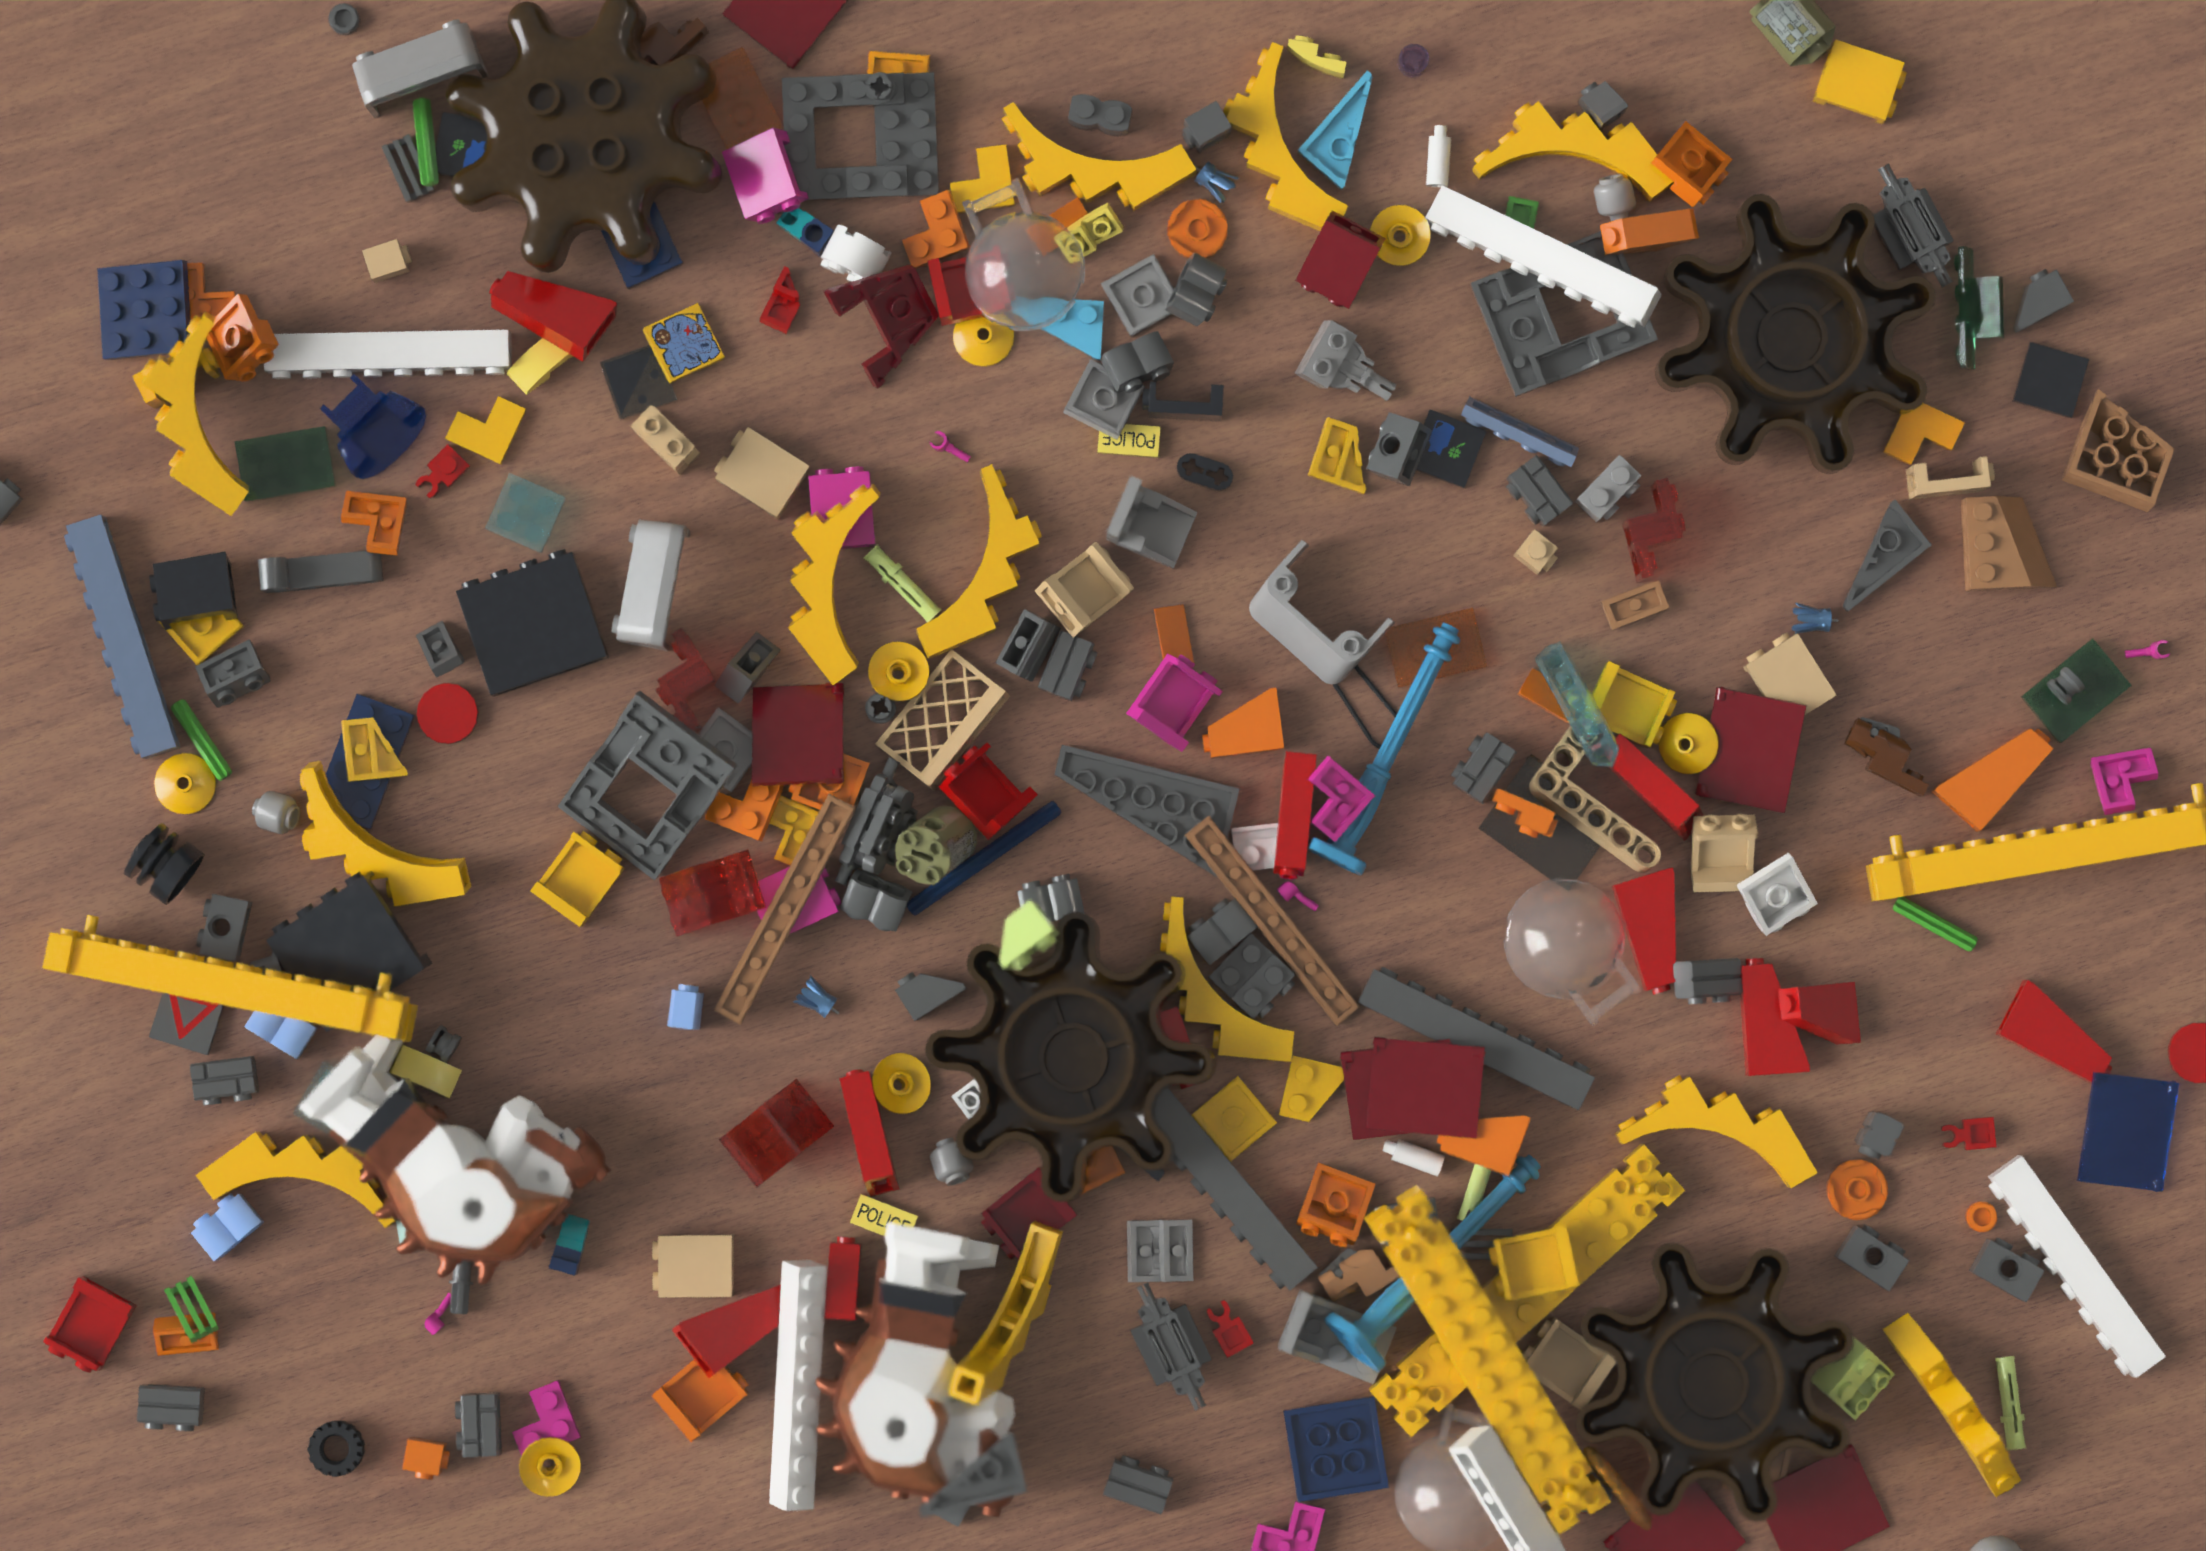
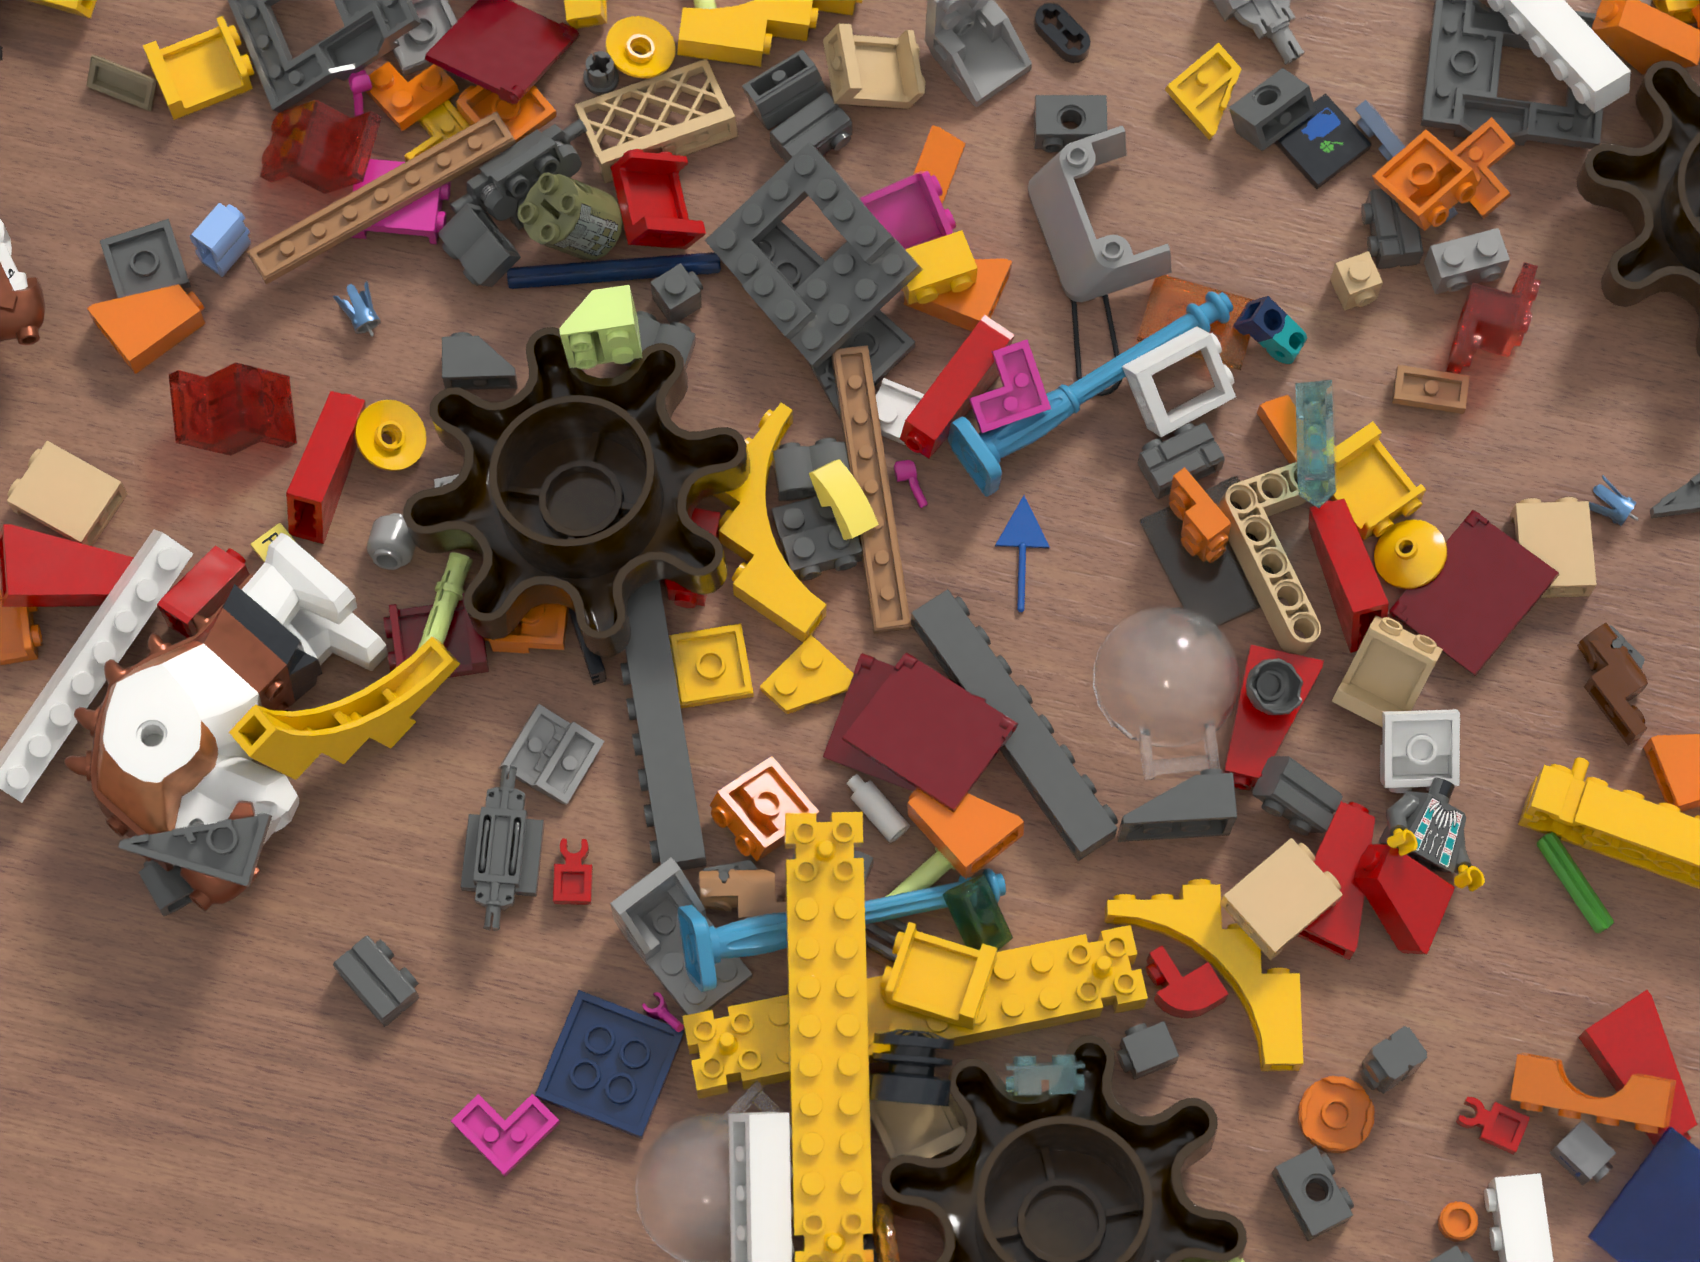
camera: 30 degrees right, 15 degrees down
(528, 923) = (121, 82): none -> dark tan tile
(637, 1055) = (144, 259): none -> dark grey plate
(669, 1101) = (148, 323): none -> orange slope
(709, 825) = (359, 83): none -> dark pink hand
(1019, 1187) = (448, 594): none -> yellowish green pin
(1044, 851) = (677, 293): none -> dark grey brick
(1169, 790) = (845, 287): none -> dark grey piece
(1226, 731) = (945, 266): none -> yellow brick
(1261, 945) = (840, 490): none -> light yellow slope
(1264, 530) = (1053, 110): none -> dark grey brick
(1352, 1392) = (663, 1013): none -> dark pink hand
(1398, 886) = (1022, 532): none -> blue piece
(1435, 700) = (1146, 394): none -> white window
(1494, 628) = (1272, 329): none -> leg
(1532, 1197) = (977, 914): none -> clear green slope
(1548, 451) = (1427, 180): none -> orange plate
(1555, 1344) = (911, 1068): none -> black wheel
(1569, 406) = (1481, 152): none -> orange plate
(1635, 1300) = (1059, 1072): none -> clear light blue hinge
(1638, 1032) = (1190, 810): none -> dark grey slope
(1651, 914) = (1274, 687): none -> dark grey hair
(1702, 1222) = (1146, 1050): none -> dark grey brick
(1710, 1165) = (1185, 995): none -> red brick
(1741, 1065) = (1281, 897): none -> tan panel
(1817, 953) = (1432, 833): none -> torso
(1991, 1088) = (1543, 1082): none -> orange arch
(2043, 1120) = (1584, 1154): none -> flat silver brick

